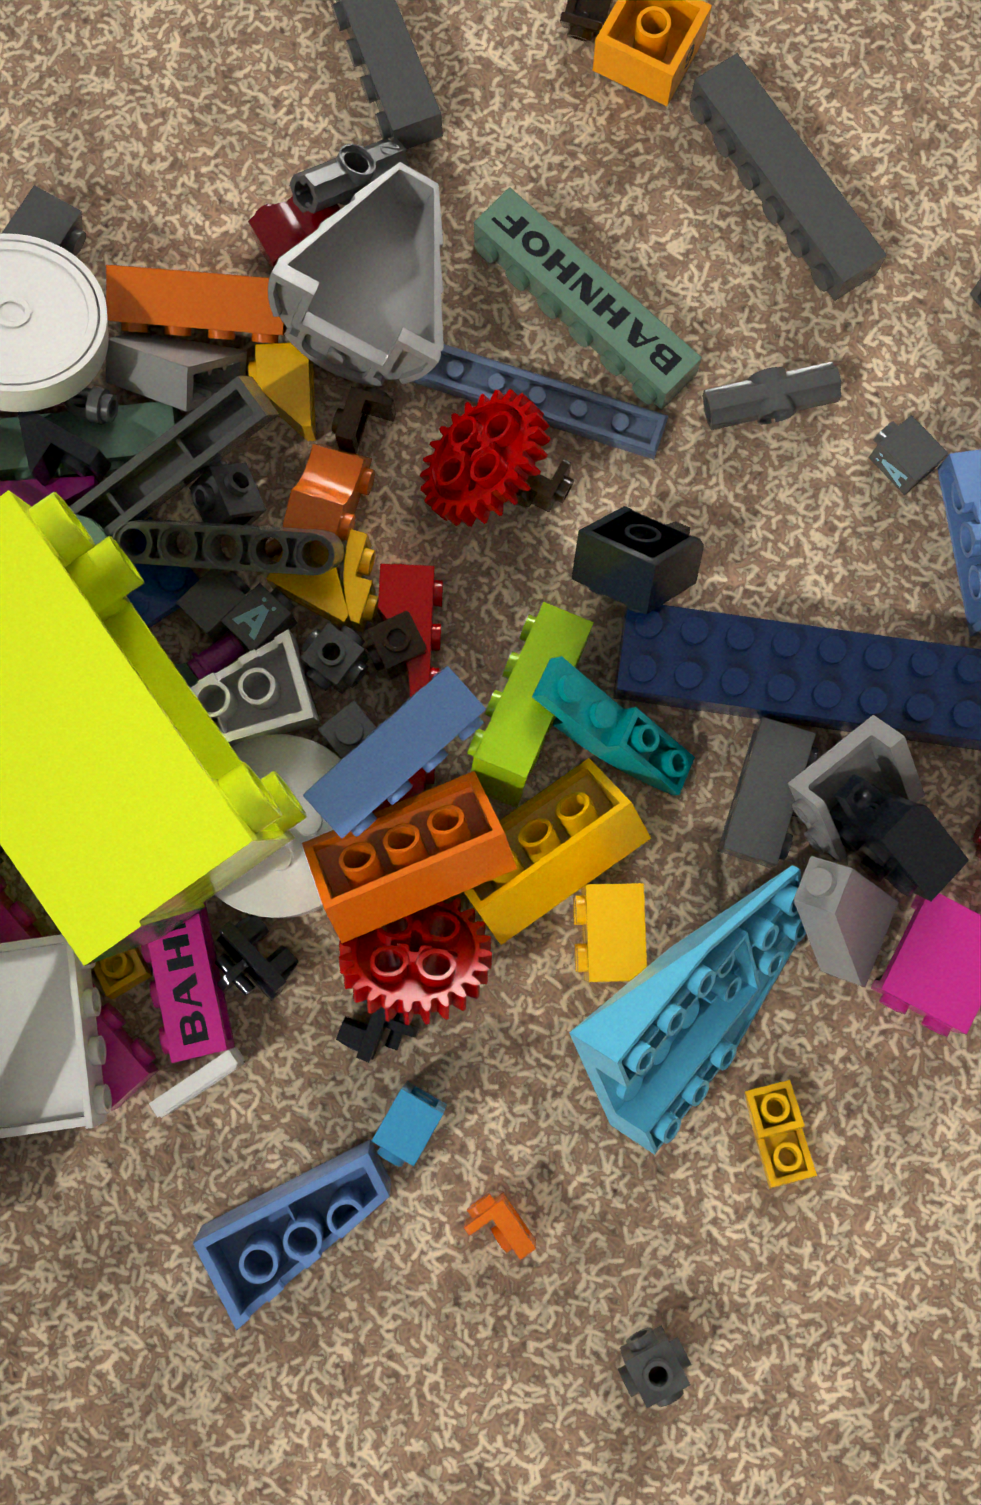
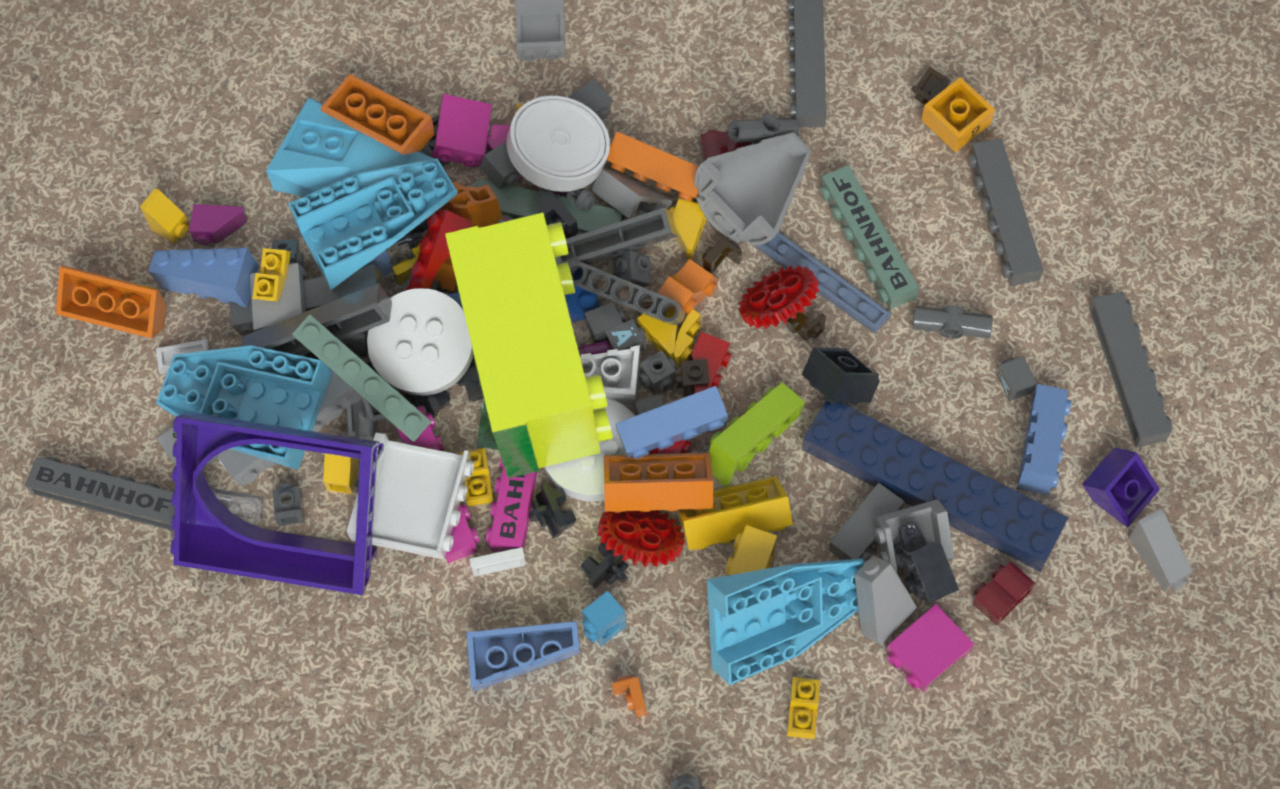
camera: 20 degrees right, 15 degrees down
(610, 732) = (794, 464): teal slope -> none

